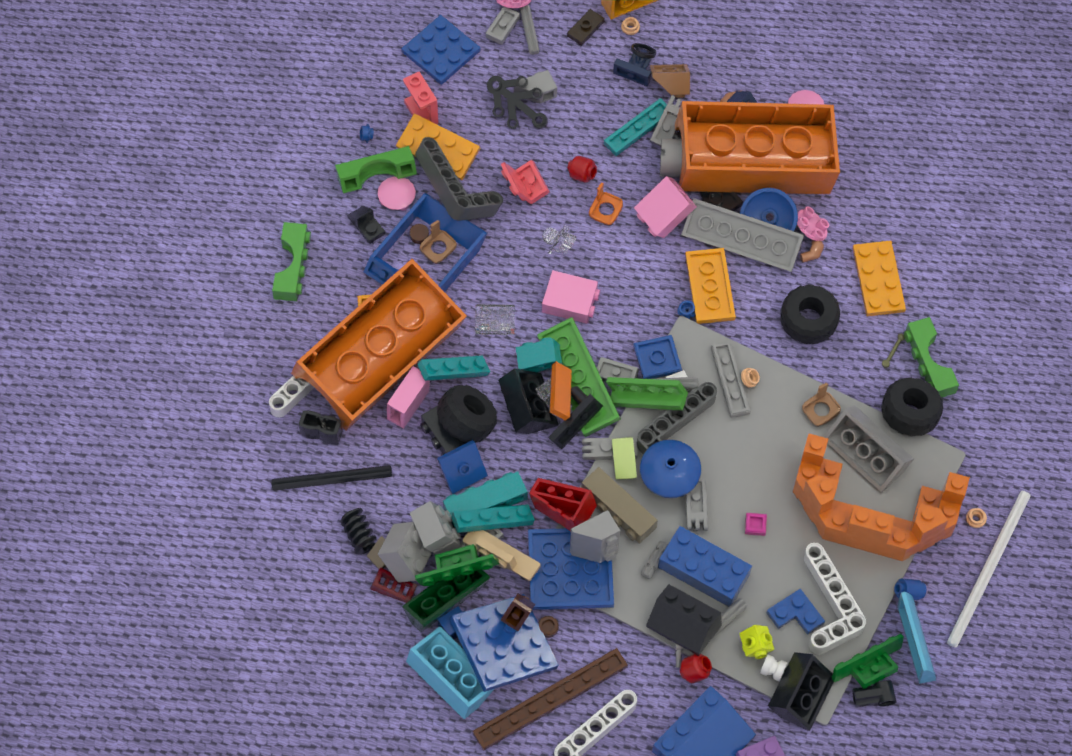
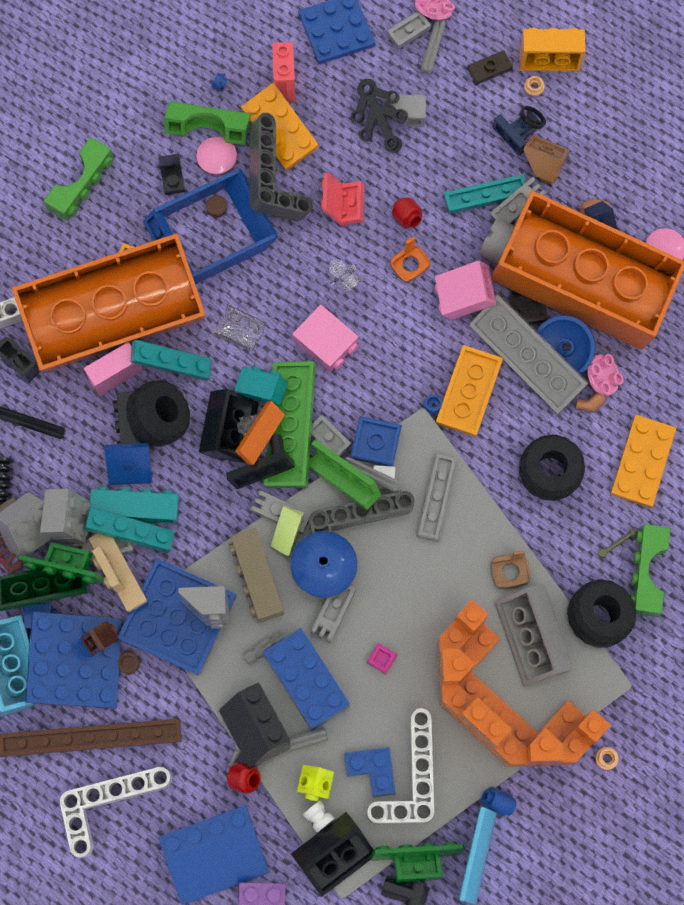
camera: 25 degrees right, 10 degrees up
(437, 235) = (229, 215): medium nougat piece -> none
(563, 502) = (204, 550): red wedge -> none
(750, 377) = (460, 506): light nougat plate -> none
(988, 569) = (590, 817): white axle -> none

